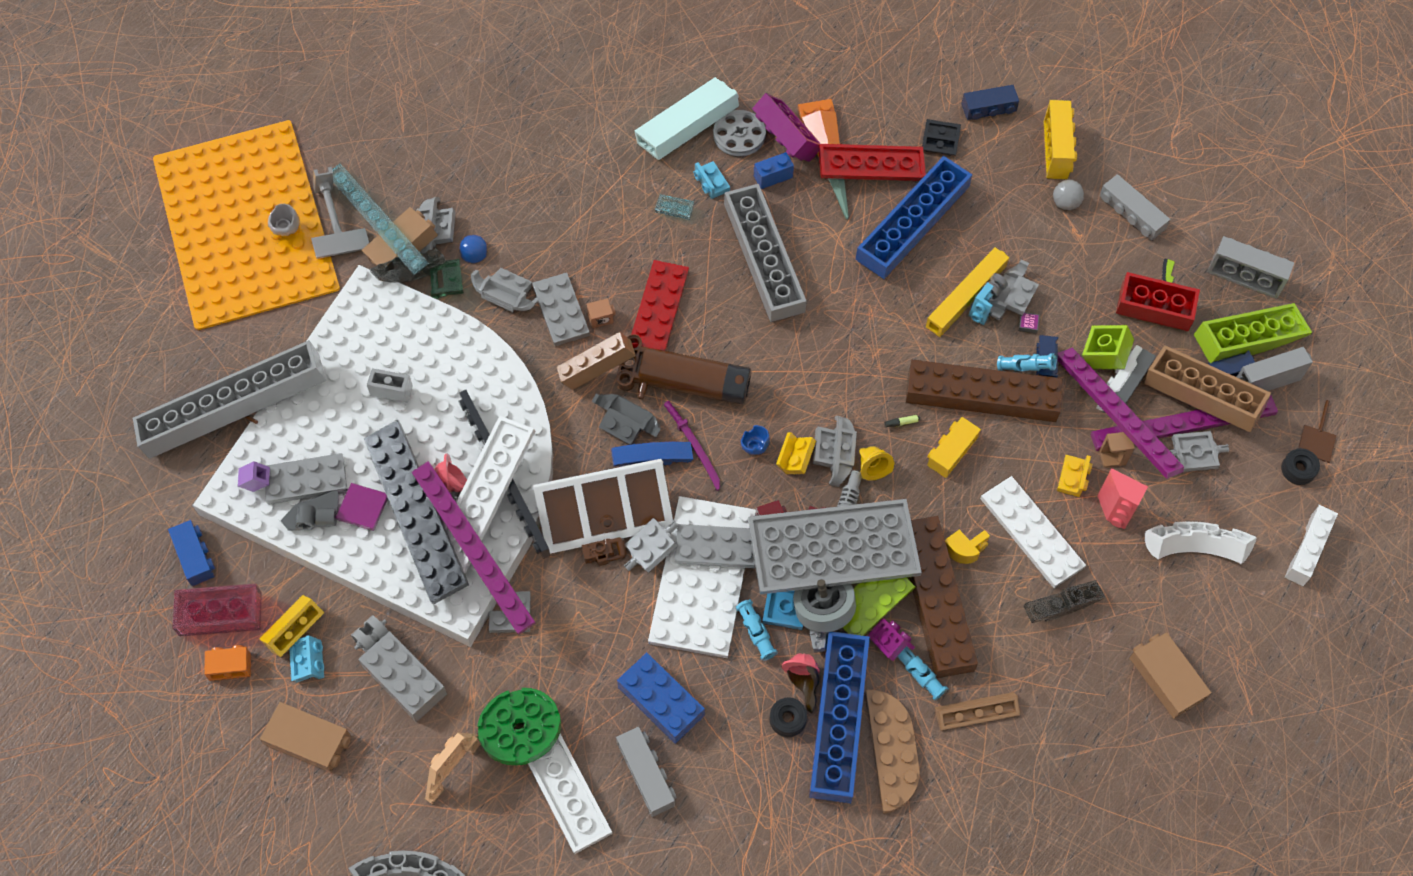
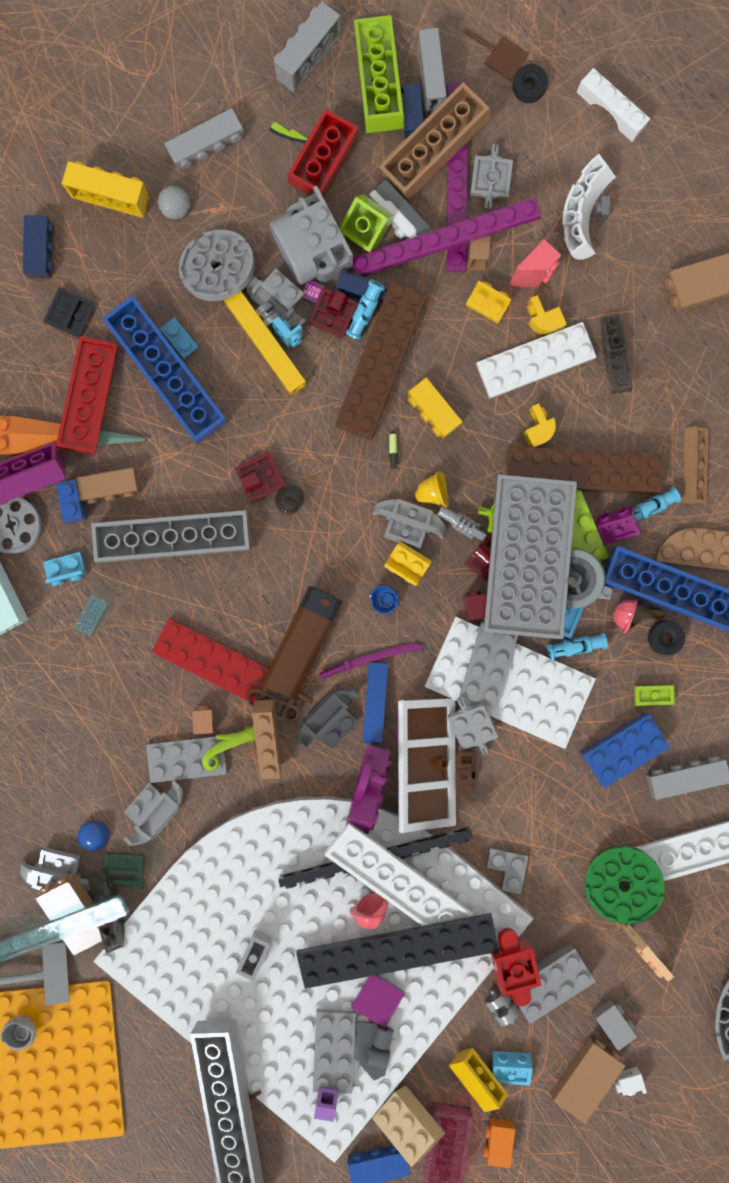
camera: 80 degrees left, 25 degrees up
(238, 563) = (408, 1125): none -> tan piece
(308, 782) = (630, 1082): none -> white brick
(368, 752) = (613, 1023): none -> light grey brick
(416, 622) = (515, 967): none -> red brick
(474, 548) = (453, 903): magenta plate -> none
(571, 449) = (369, 788): none -> magenta brick
(585, 336) = (229, 741): none -> lime plant
(725, 718) = (654, 695): none -> lime plate
(796, 196) = (108, 486): none -> medium nougat brick
(827, 341) = (289, 499): none -> clear smoke hair
(840, 313) = (260, 477): none -> dark red plate
(947, 225) = (179, 338): none -> dark azure plate
(1007, 231) = (227, 279): none -> light grey plate
(1014, 340) = (333, 312): none -> dark red plate
(1073, 527) = (544, 322): none -> yellow brick
(1074, 304) = (311, 240): none -> light grey brick
(1206, 559) = (602, 208): none -> flat silver plate

